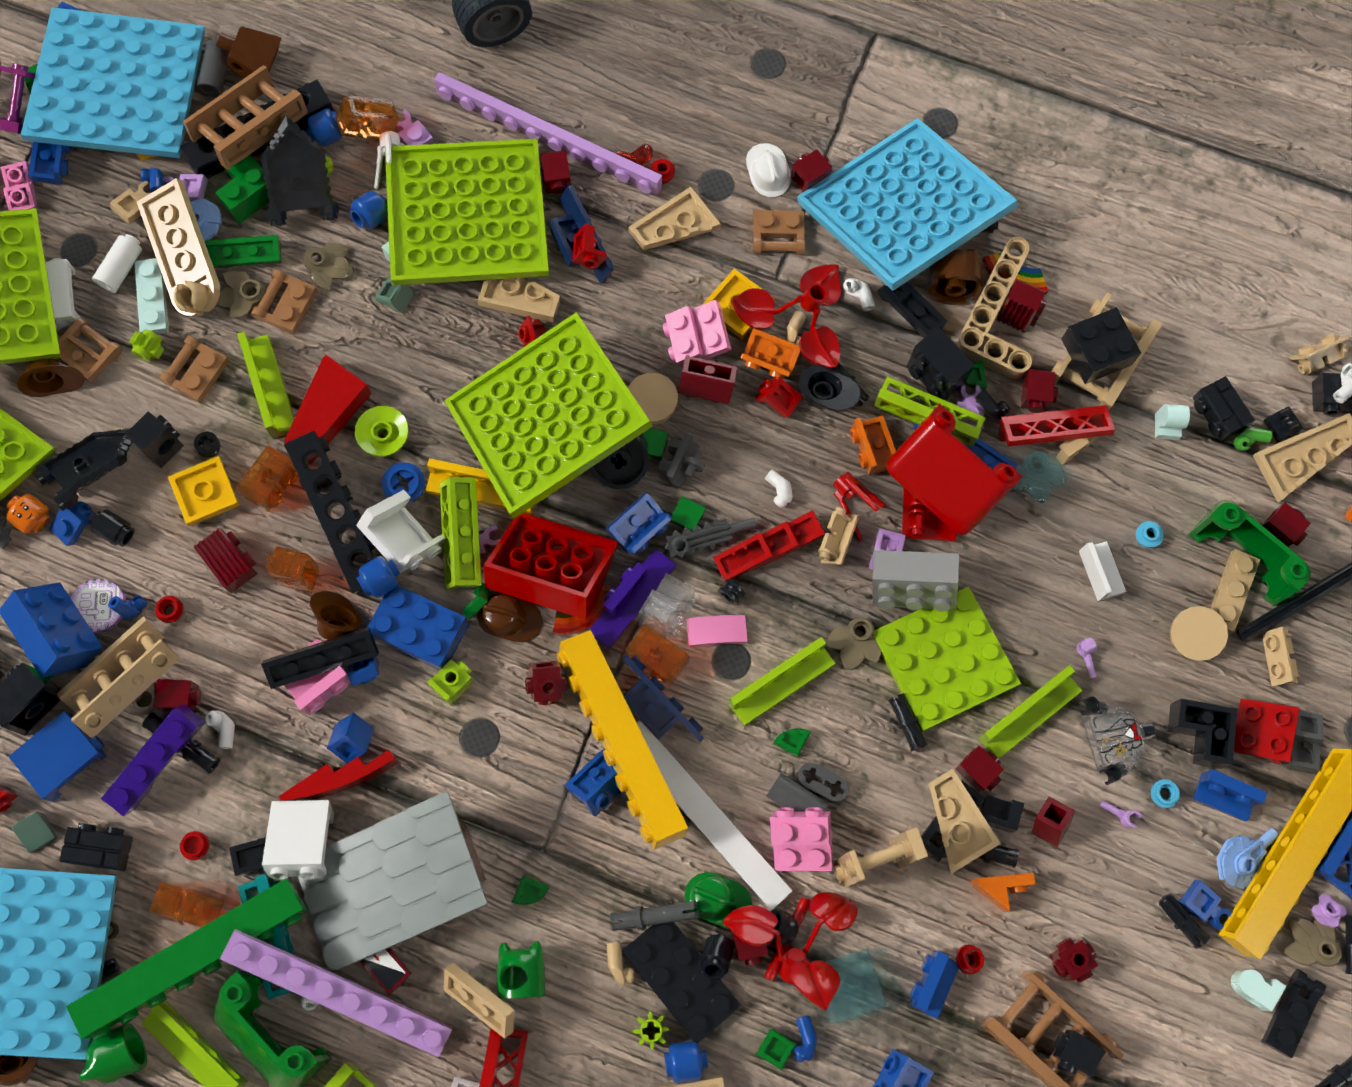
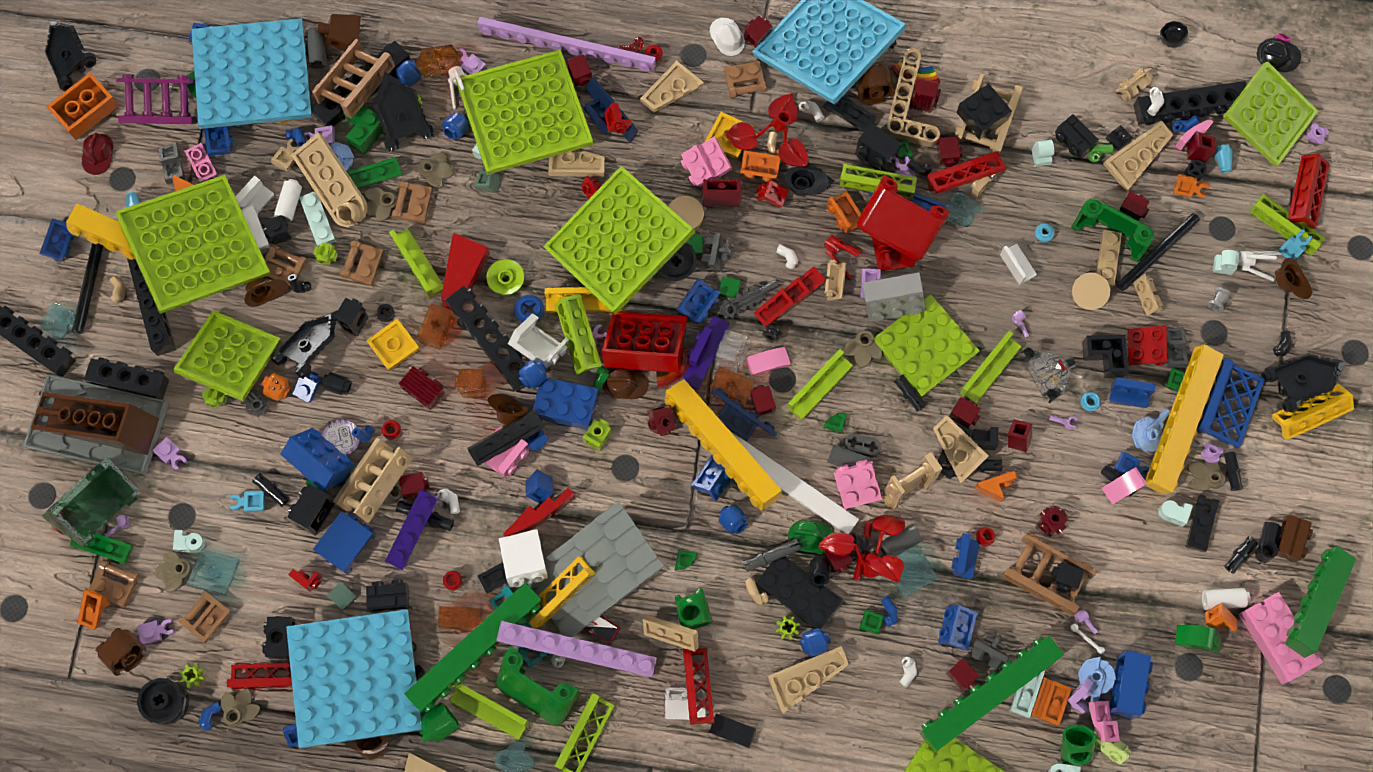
camera: 10 degrees left, 0 degrees up
(75, 245) = (254, 195): none -> white panel
(91, 298) = (277, 229): none -> black brick
(97, 381) = (298, 286): none -> black arm
(339, 906) = (562, 595): none -> yellow fence
(611, 849) = (733, 519): none -> blue head
(695, 685) = (762, 400): none -> dark red brick
(835, 944) = (898, 544): none -> dark grey pin
(1190, 932) = (1124, 485): none -> bright pink slope
(1294, 788) = (1174, 379): none -> green tile

